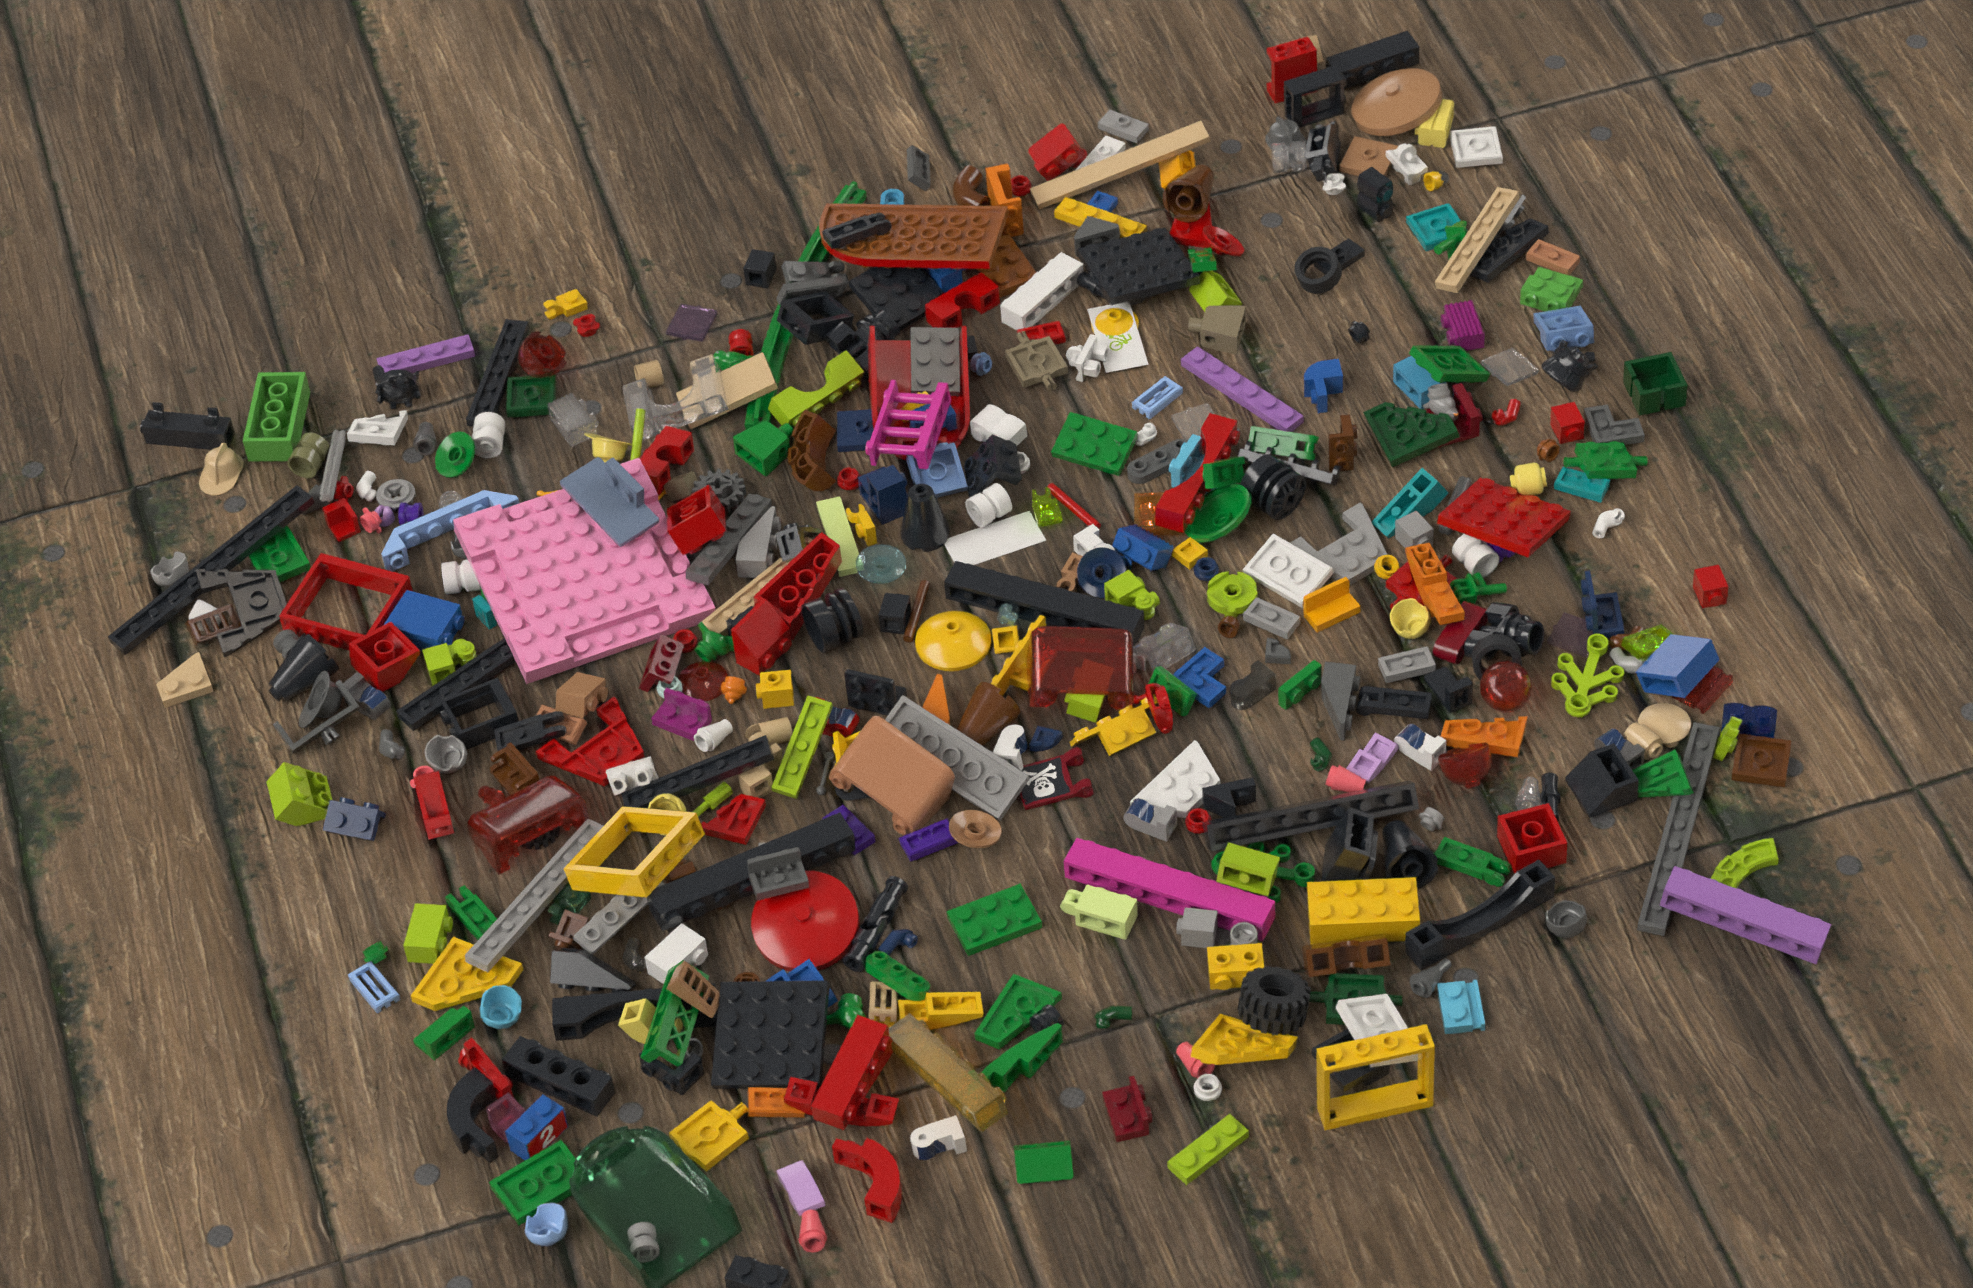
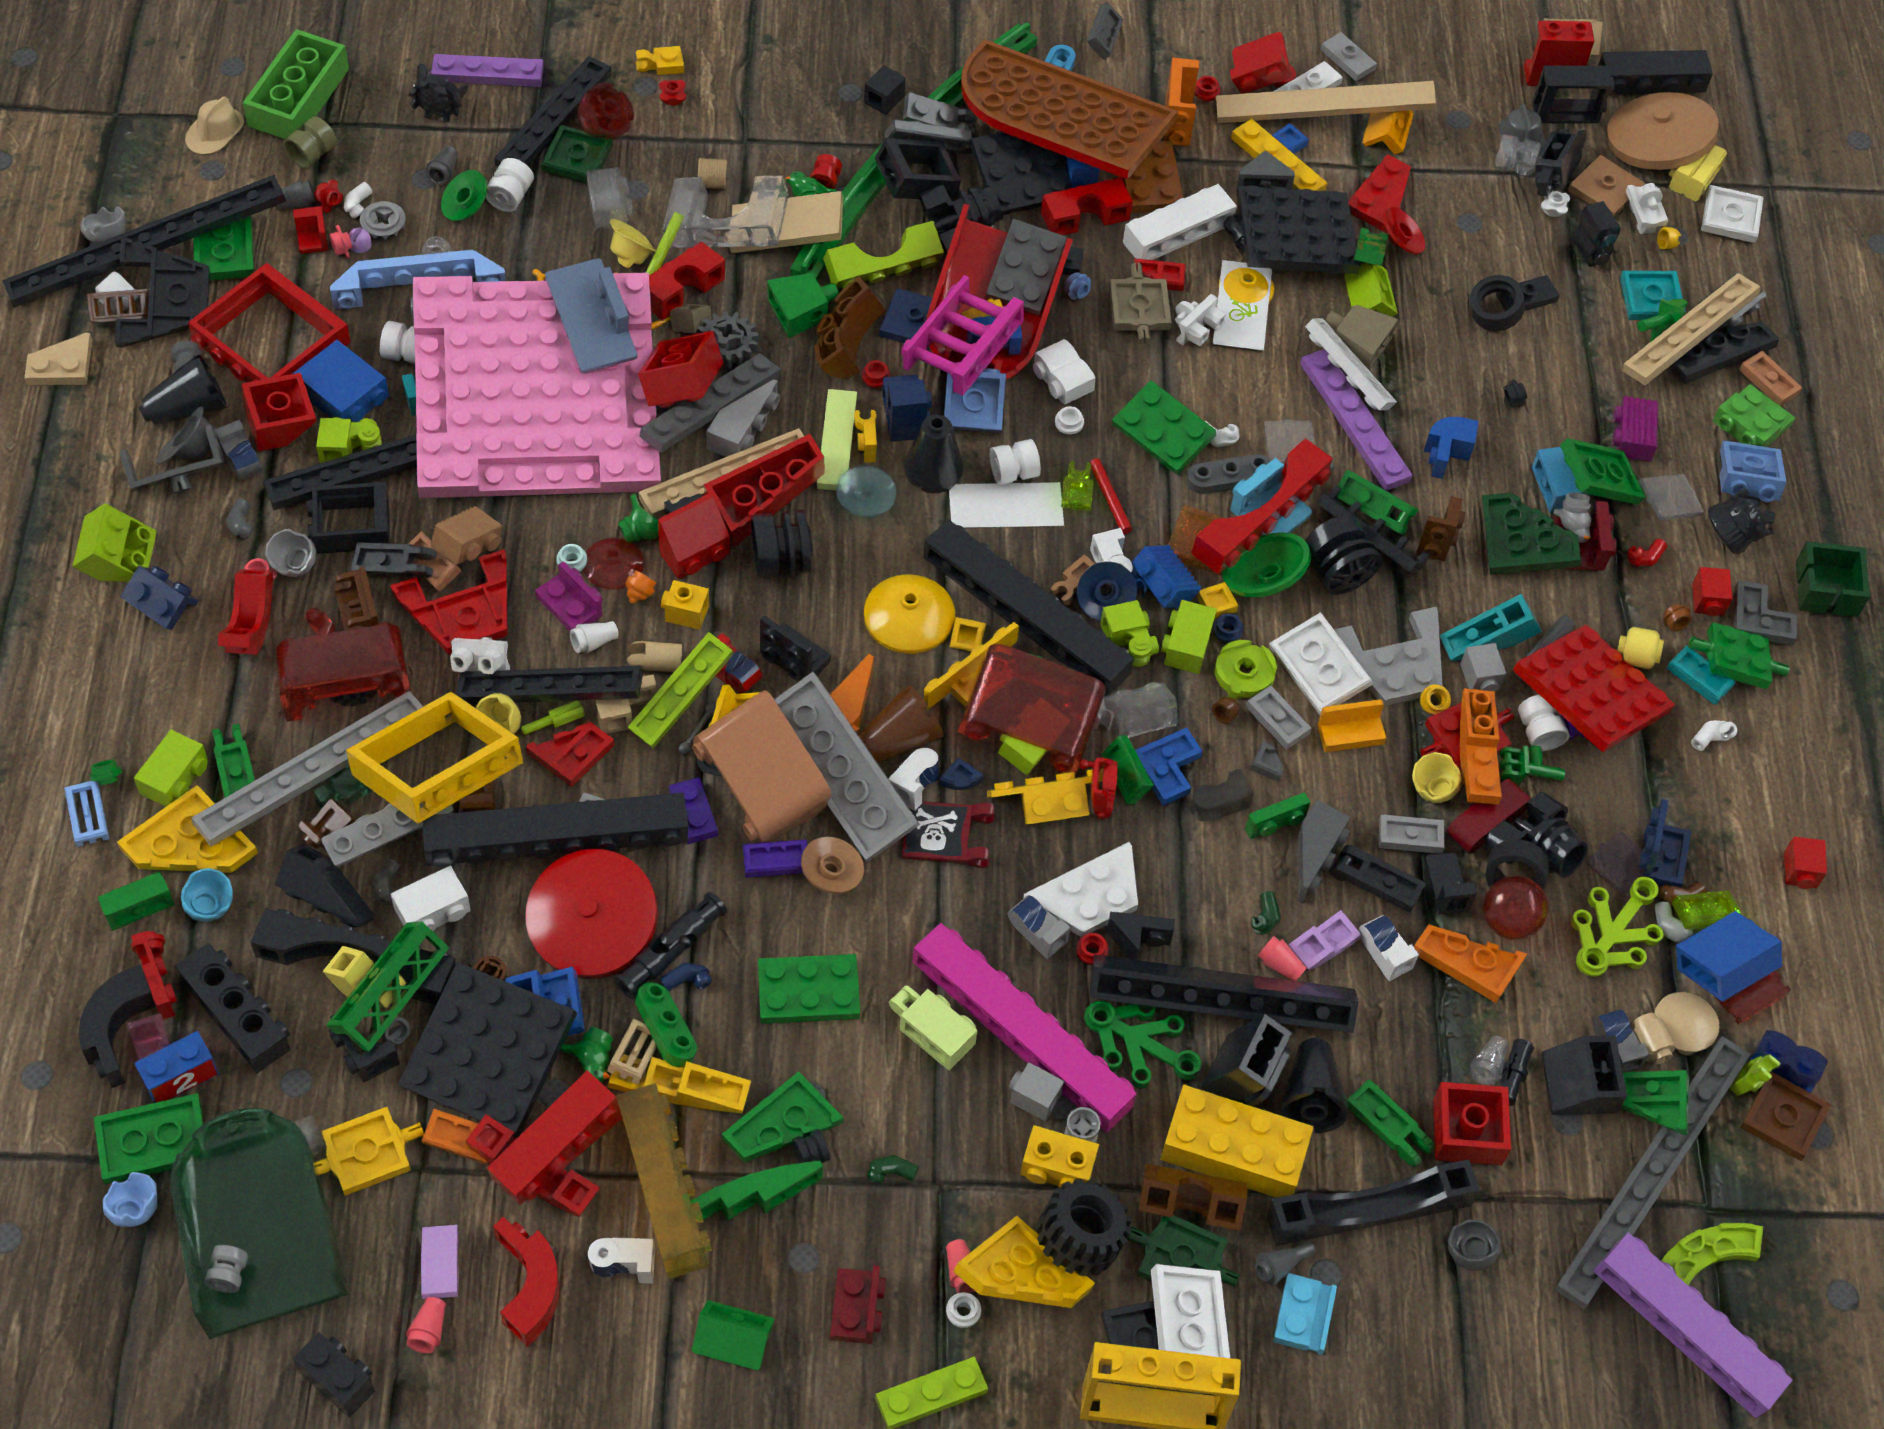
camera: 10 degrees right, 10 degrees up
(186, 429) = (199, 68): black brick -> none
(332, 465) = (327, 164): light grey axle -> none
(377, 429) = (398, 136): white wing -> none
(409, 512) = (383, 247): dark purple wheel -> none
(661, 662) = (574, 527): dark red bracket -> none
(684, 991) = (398, 956): medium nougat slope -> none
(687, 638) = (612, 508): red plate -> none
(691, 322) = (786, 127): clear purple piece -> none
(777, 873) = (576, 849): dark grey bracket -> none
(792, 540) = (776, 429): bracket -> none
(856, 230) = (1000, 83): black hinge -> none
(894, 613) = (856, 557): black brick -> none
(916, 611) = (883, 562): reddish brown bar -> none
(965, 187) = (1144, 72): reddish brown cylinder -> none
(993, 459) = (1039, 411): black bracket -> none
(1006, 615) = (978, 606): clear light blue arm -> none
(1161, 398) = (1259, 398): light blue tile -> none
(1179, 584) = (1189, 636): none -> lime brick
(1189, 194) = (1388, 163): reddish brown cone -> none
(1213, 347) = (1356, 371): none -> white plate
(1223, 472) = (1292, 518): green plate -> none
(1248, 869) = (1121, 1040): lime brick -> none
(1431, 819) = (1363, 1048): light grey plate -> none
(1467, 764) = (1431, 994): clear red cylinder -> none

